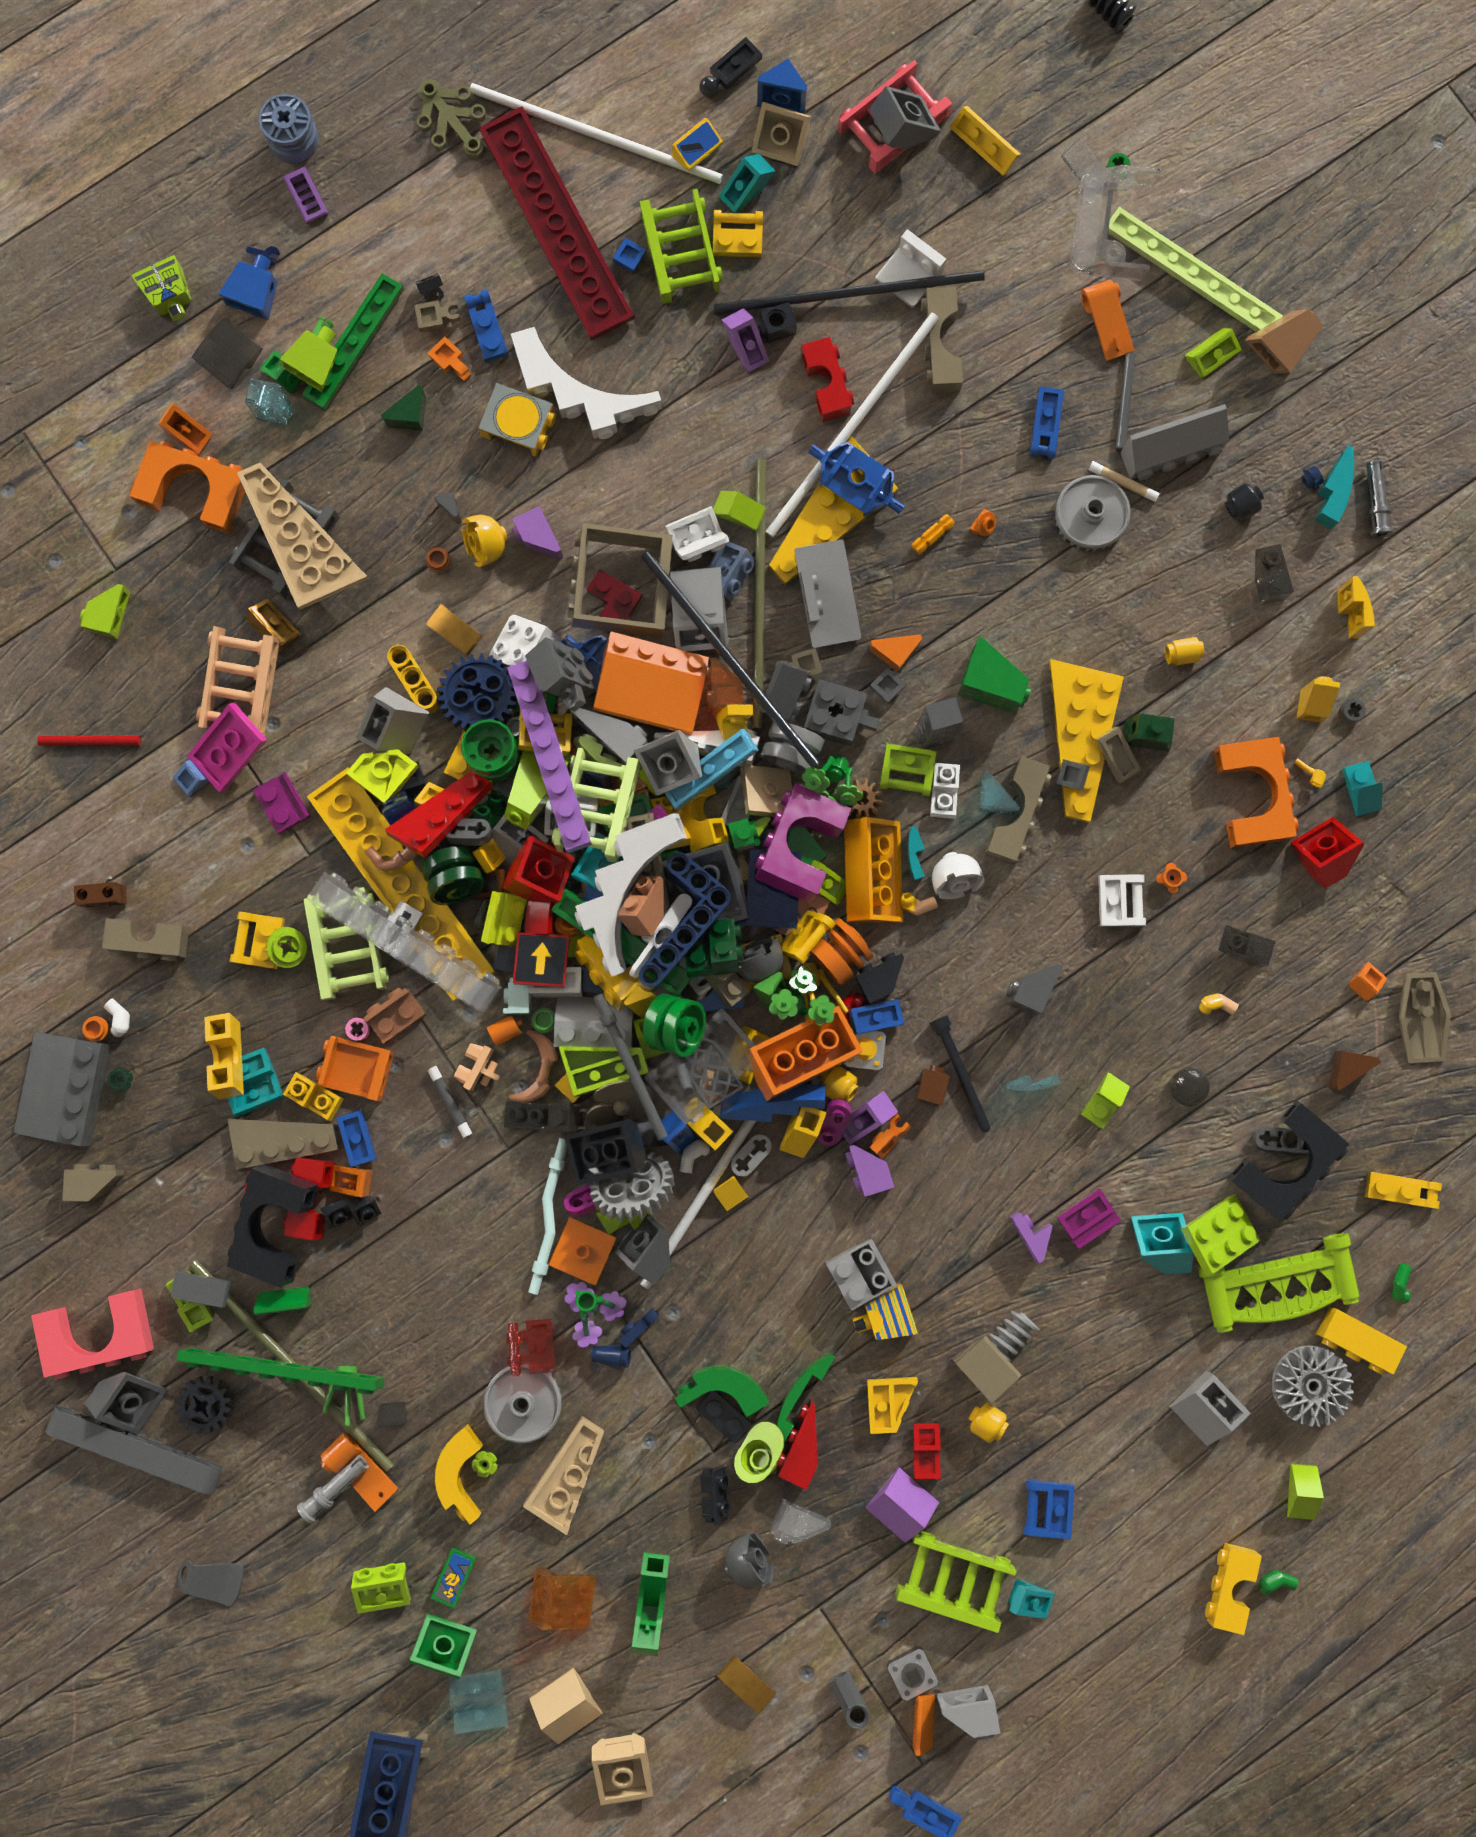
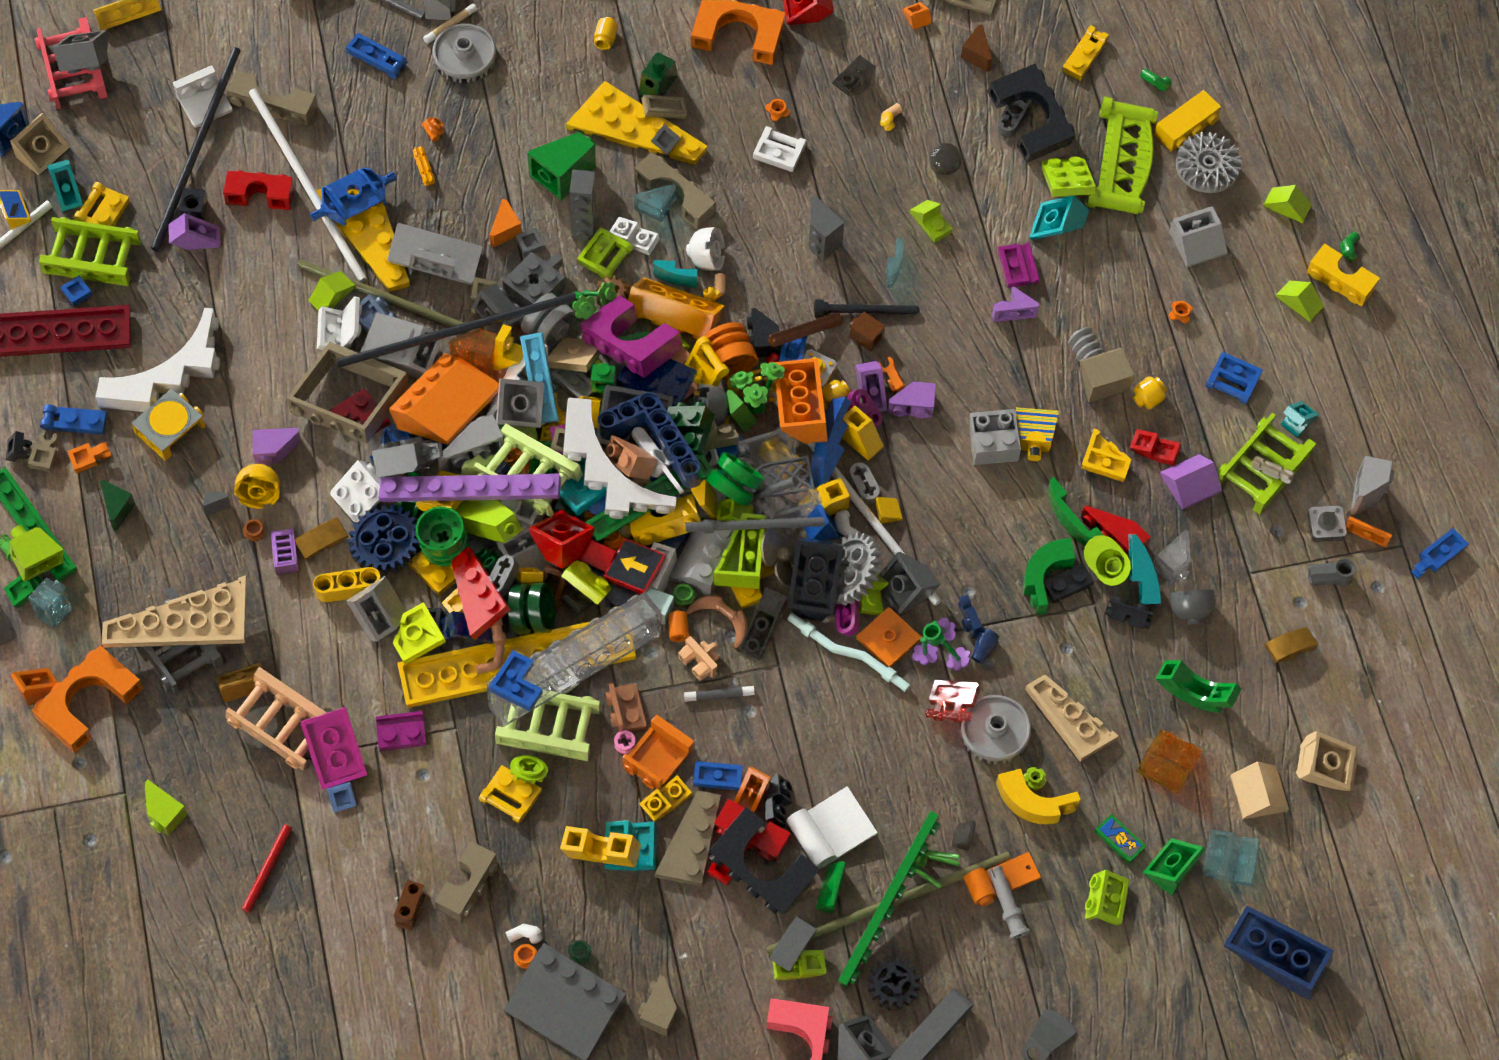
camera: 70 degrees left, 20 degrees down
(326, 896) = (510, 682): none -> blue plate
(345, 1276) = (831, 828): none -> white door
(424, 592) = (289, 565): none -> medium lavender slope
(758, 1496) = (1143, 571): none -> teal slope
(901, 1021) = (805, 329): none -> reddish brown axle
(942, 1597) = (1273, 470): none -> dark tan axle
(1114, 1424) = (1183, 307): none -> orange plate
(1184, 1549) = (1301, 298): none -> lime slope

